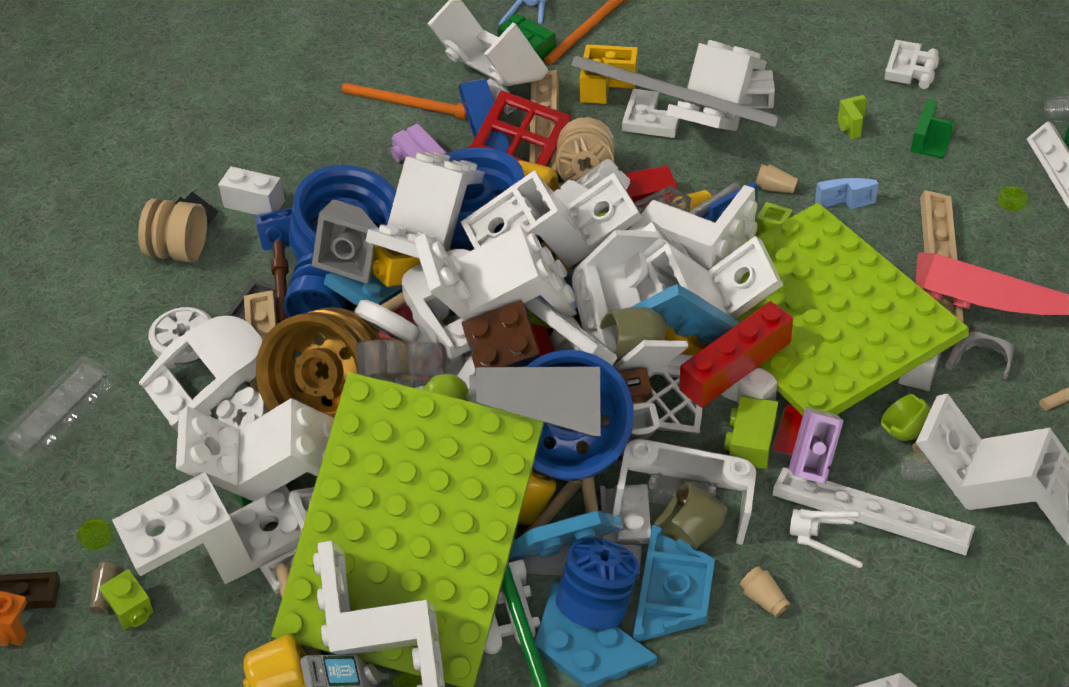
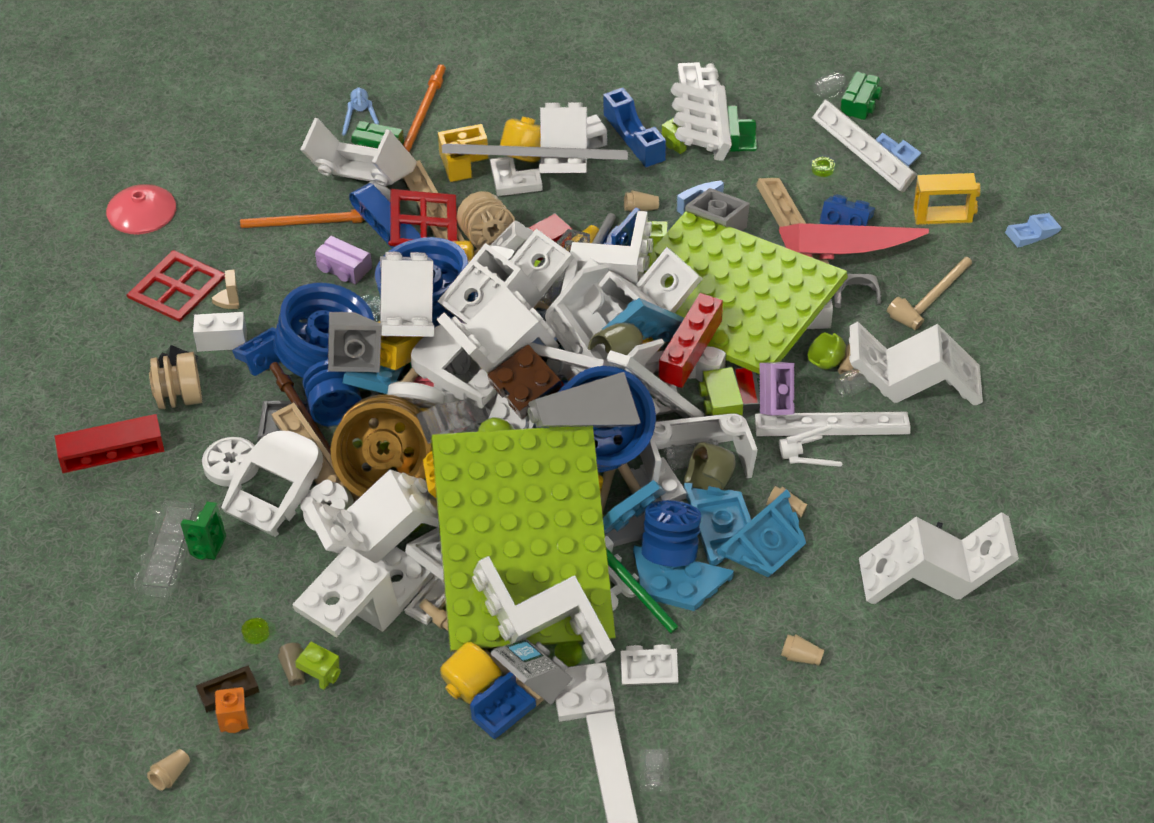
camera: 25 degrees left, 0 degrees up
(75, 276) = (109, 443): none -> red brick
(101, 404) = (205, 534): none -> green bracket
(243, 132) = (176, 285): none -> window
(257, 47) = (141, 209): none -> coral dish
(288, 154) = (228, 297): none -> tan tile
(654, 395) = (655, 385): none -> white tile
(672, 68) = (522, 133): none -> yellow head
(714, 630) = (767, 539): none -> dark azure wing
(811, 111) = (645, 143): none -> blue arch
(858, 213) = (720, 209): none -> light grey slope
(910, 104) = (714, 120): none -> white fence
(1009, 257) = (843, 212): none -> blue bracket
(1029, 401) = (904, 313): none -> tan cone

